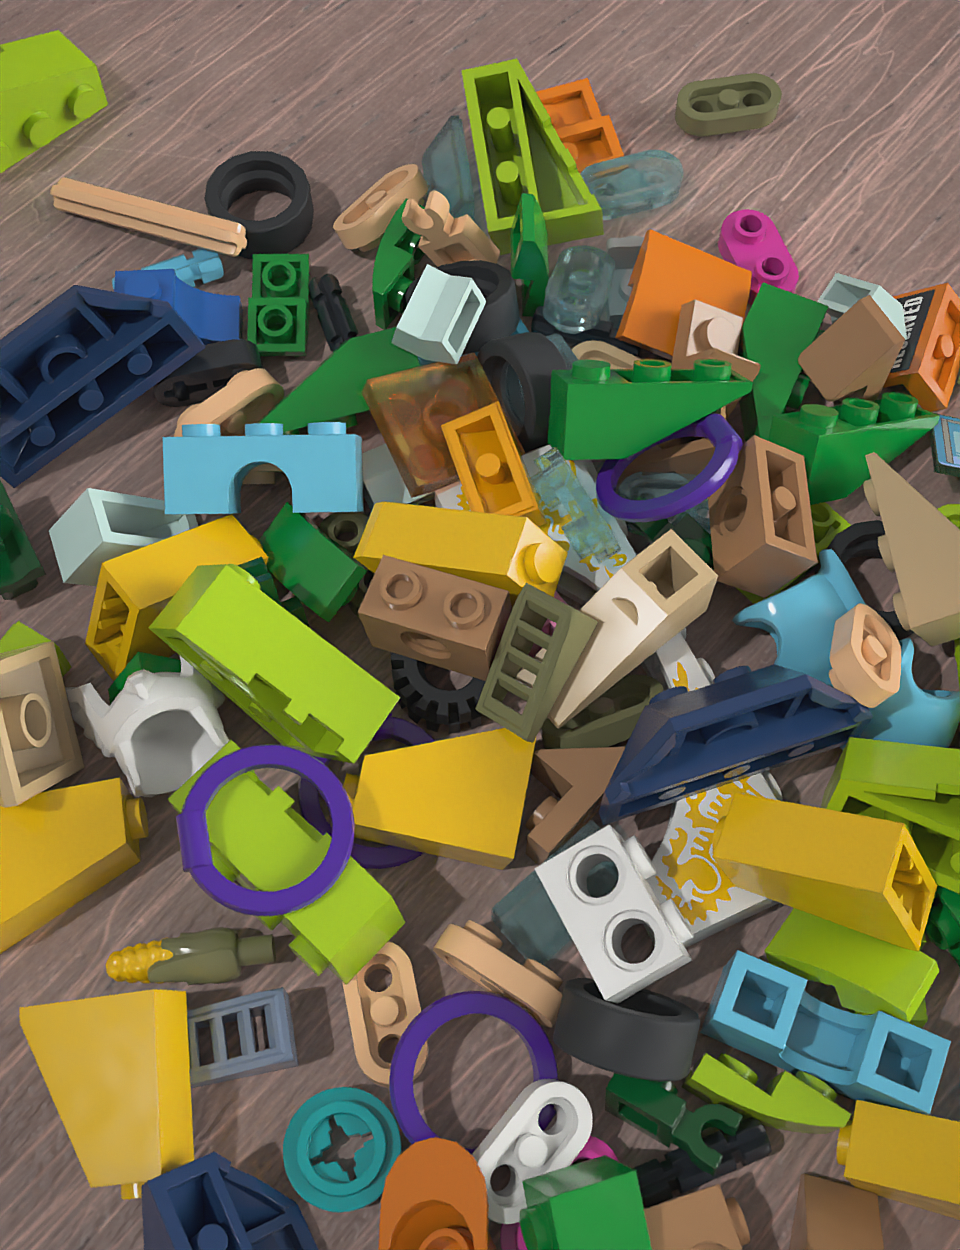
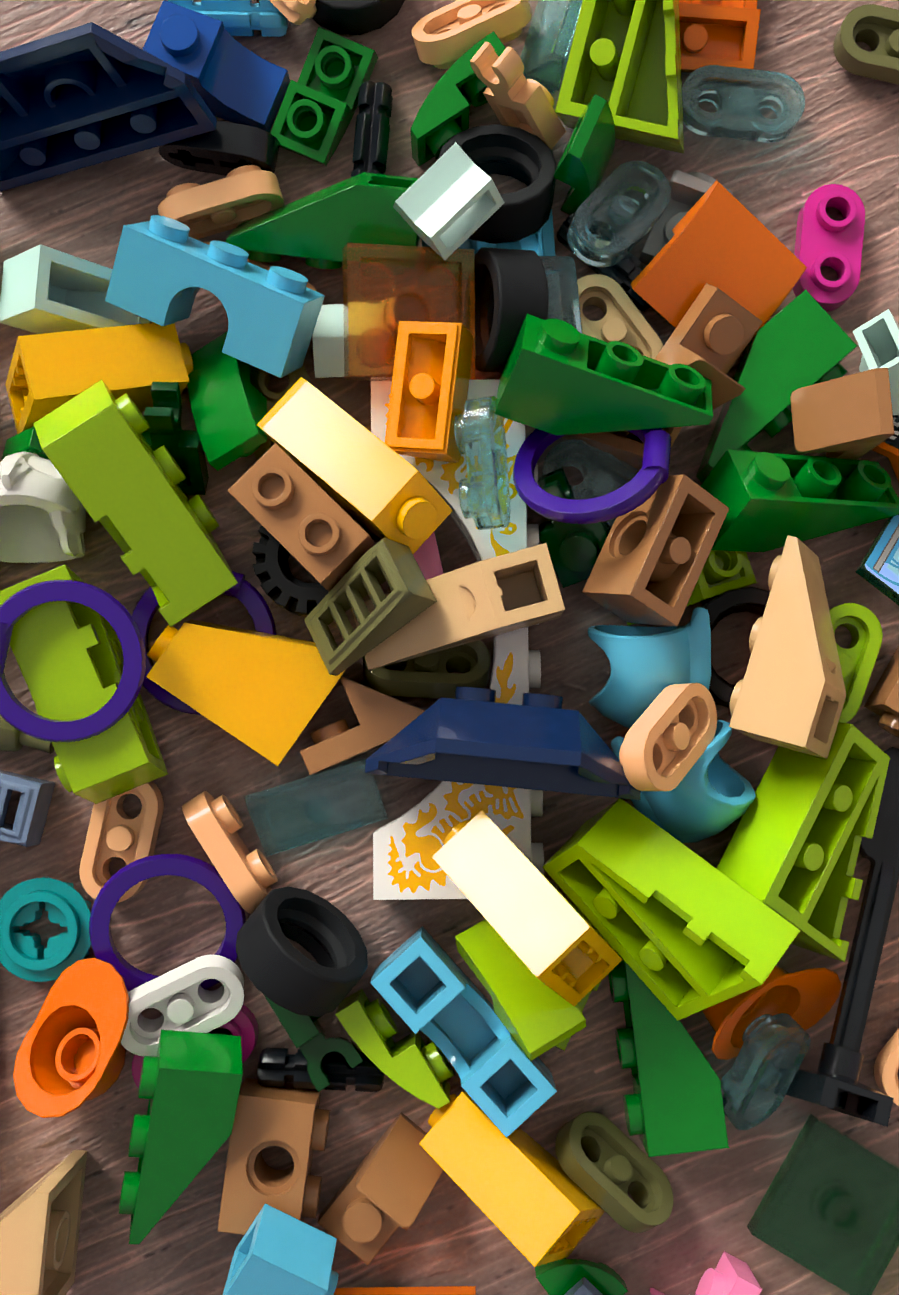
camera: 25 degrees right, 20 degrees up
(601, 922) = (315, 857): white brick -> none

